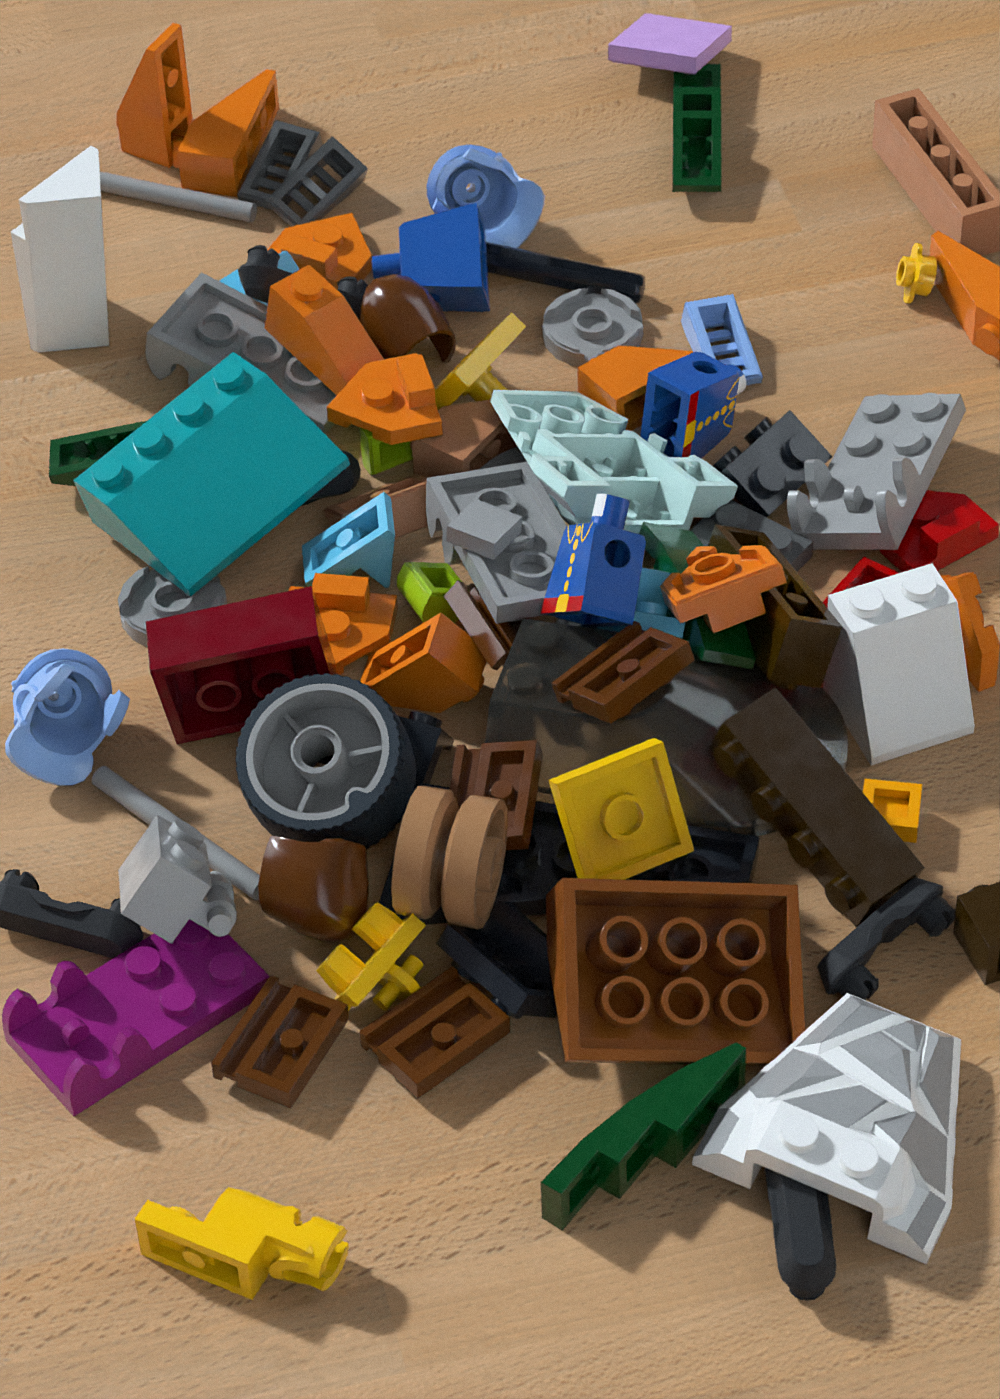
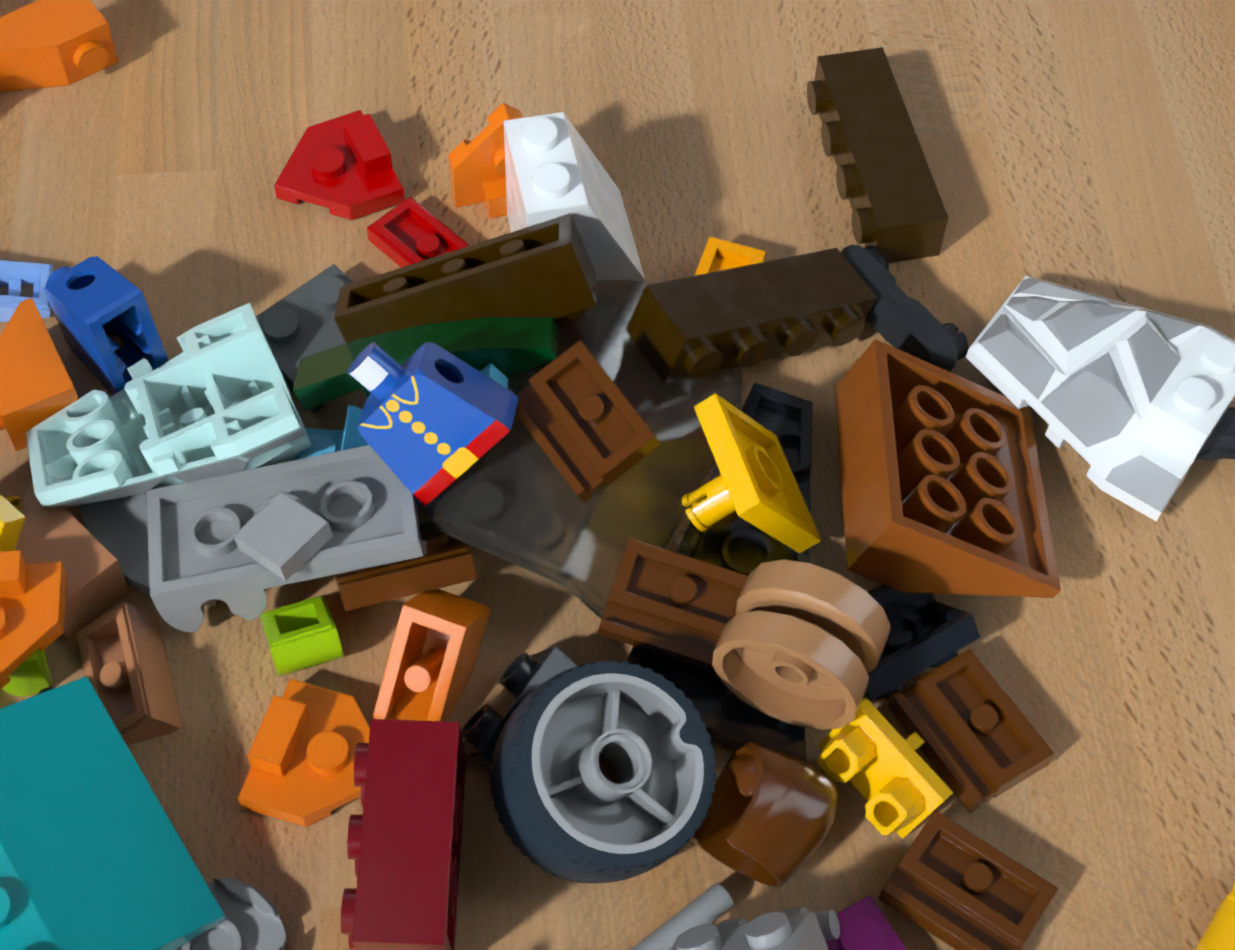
camera: 85 degrees left, 10 degrees up
(355, 542) = (208, 708): medium azure slope -> none
(656, 1123) = (1112, 534): dark green slope -> none
(722, 586) = (474, 304): orange plate -> none
(771, 462) = (199, 276): black bracket -> none
(876, 473) = (257, 183): light grey hinge -> none

